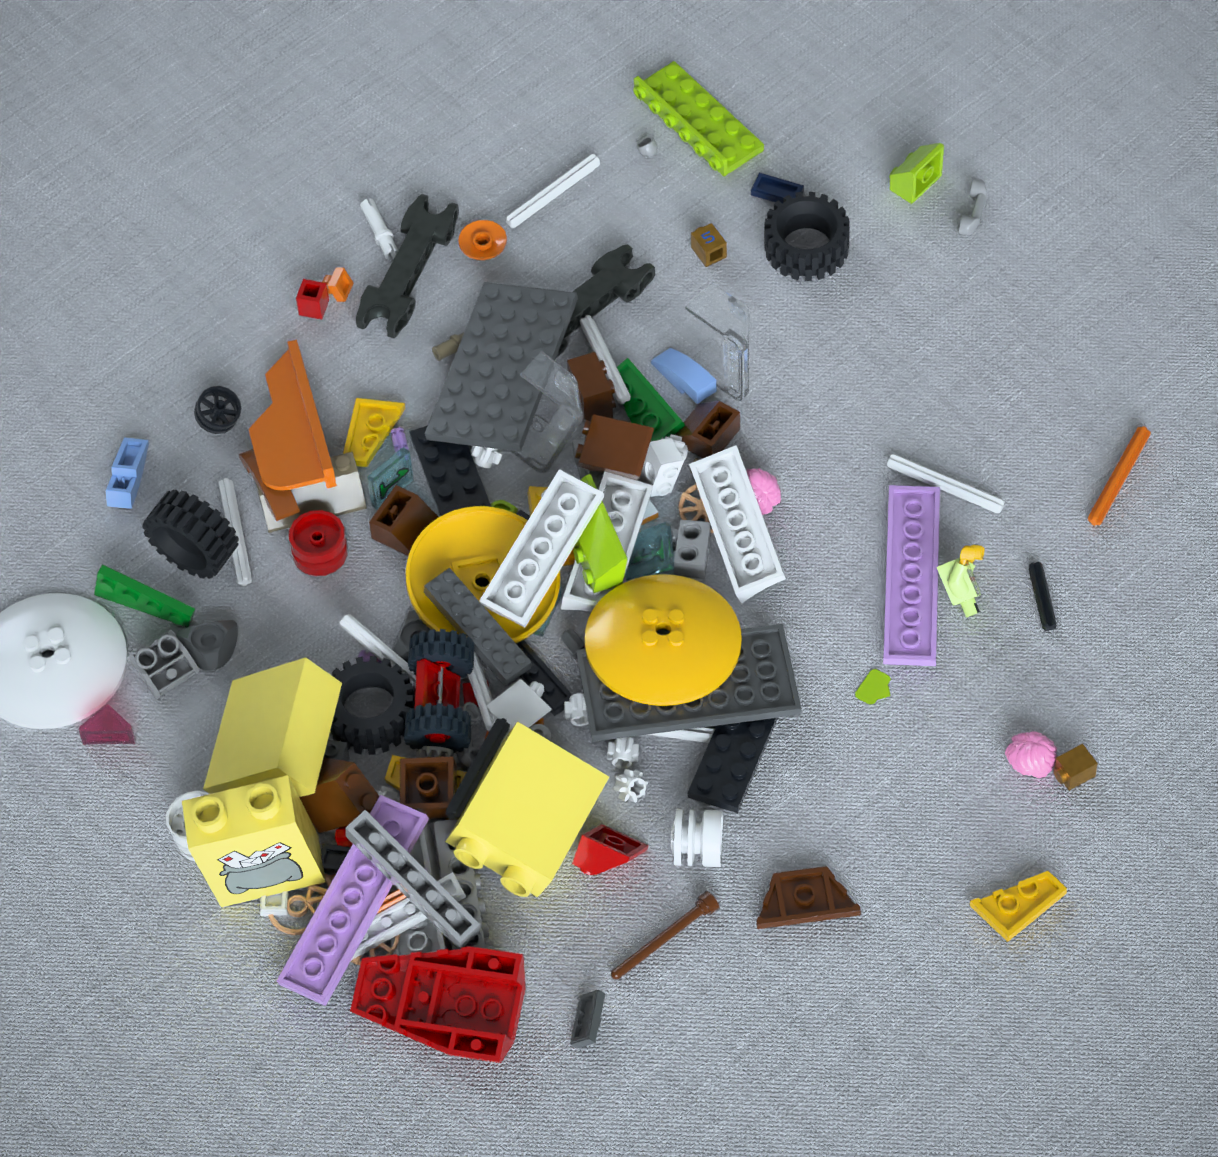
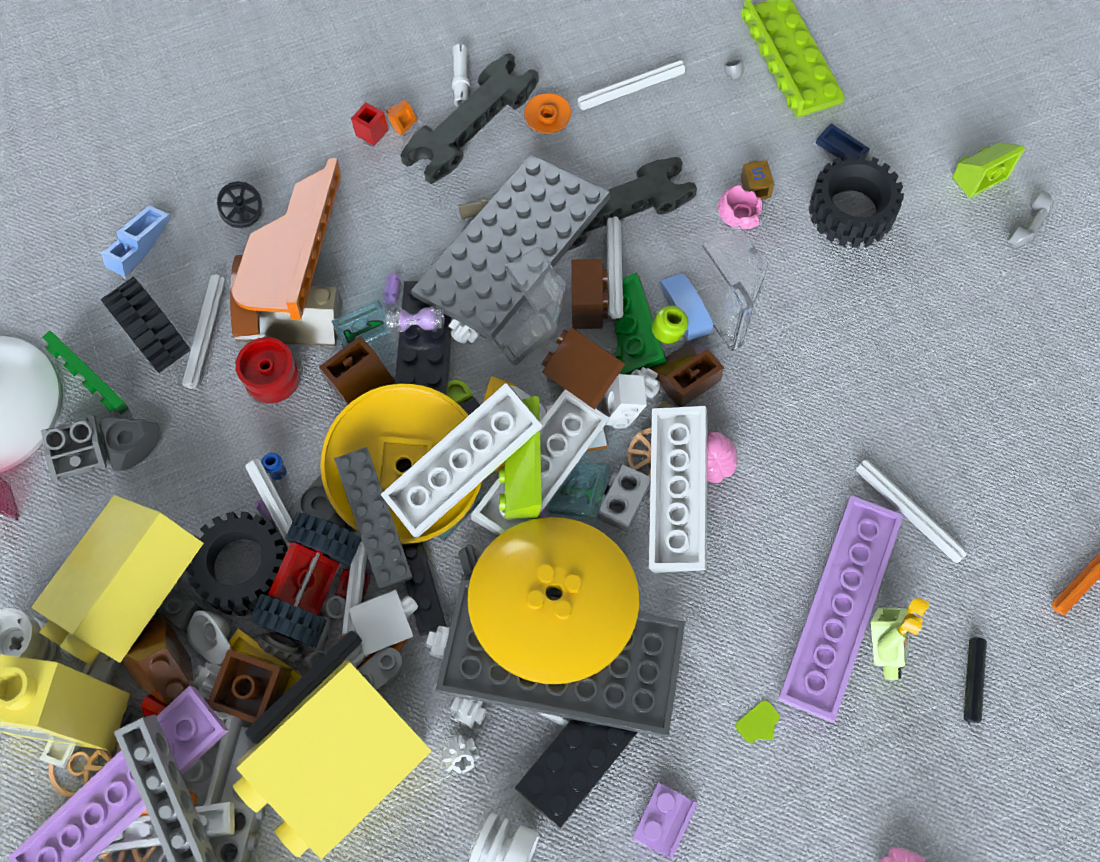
camera: 20 degrees right, 10 degrees up
(362, 615) = (277, 467): none -> blue pin
(370, 427) = (369, 267): yellow wing -> none
(374, 766) = (209, 635): none -> white piece
(451, 452) = (427, 318): none -> clear piece
(605, 849) = (408, 825): red slope -> none
(677, 391) = (670, 324): none -> lime head
(700, 271) = (740, 208): none -> bright pink hair
(822, 781) = (664, 820): none -> lavender plate

